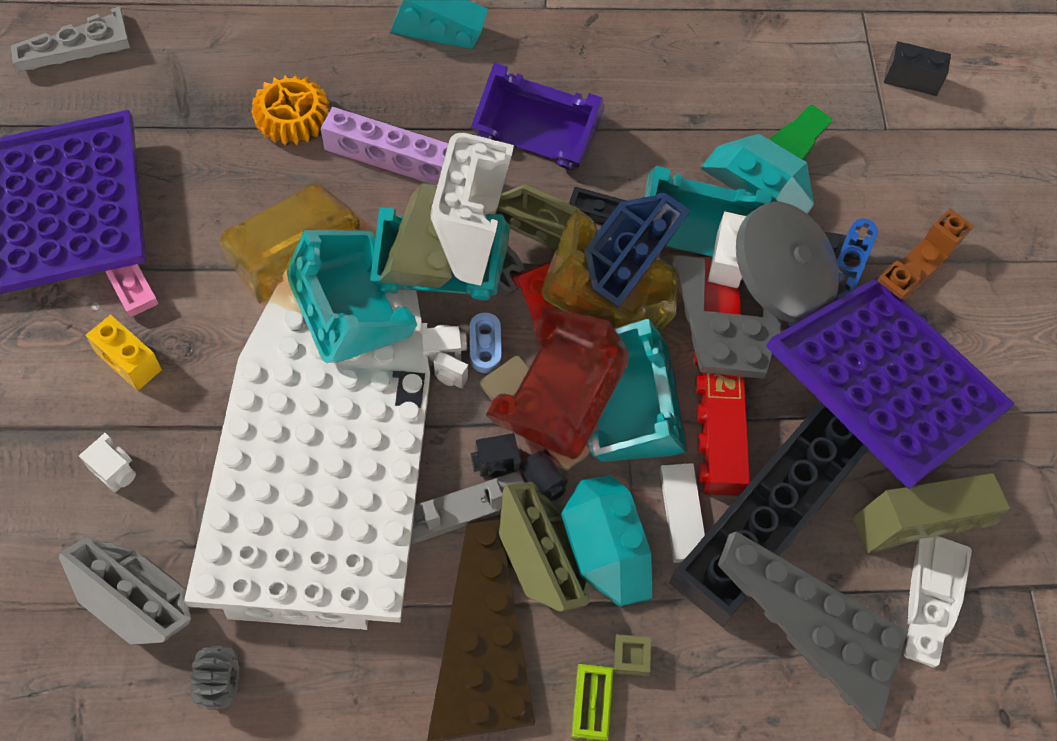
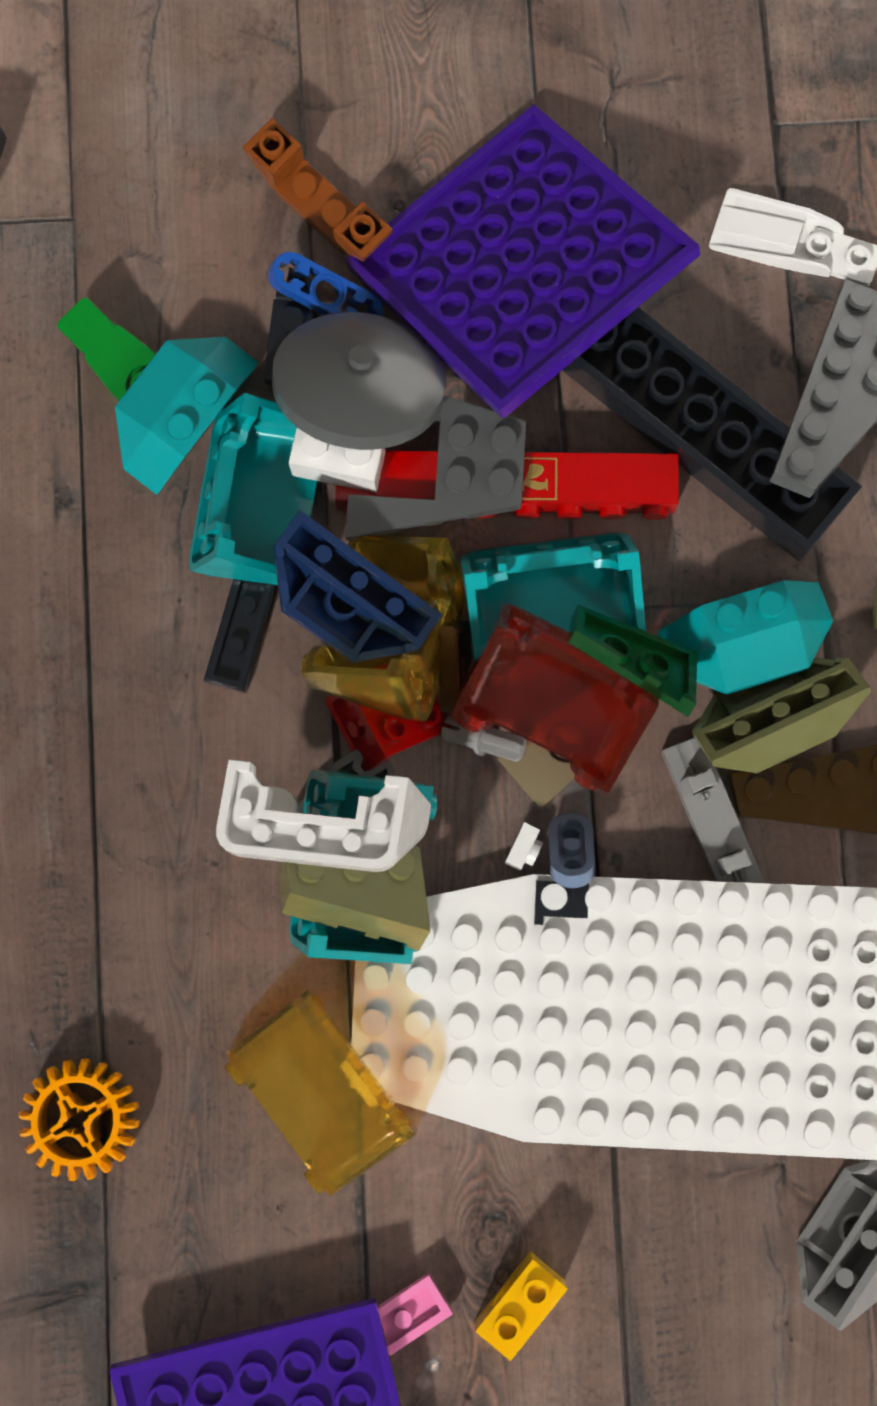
camera: 85 degrees left, 20 degrees up
(108, 463) = (687, 1295): white brick -> none
(338, 299) = (443, 1005): teal windscreen -> none
(383, 145) = (158, 933): lavender brick -> none
(442, 339) = (481, 859): white brick -> none
(445, 397) = (571, 850): none -> sand blue plate
(485, 344) = (474, 802): light blue plate -> none
(496, 455) = (648, 781): black brick -> none
(527, 350) = (486, 741): none -> light grey axle
(535, 214) = (271, 716): olive wedge -> none
(537, 117) = (85, 733): dark purple windscreen -> none
(545, 475) = (669, 724): black brick -> none
(588, 436) = (639, 656): none -> dark green wing
(682, 508) = (700, 541): white tile -> none
(930, 511) = (689, 198): olive wedge -> none

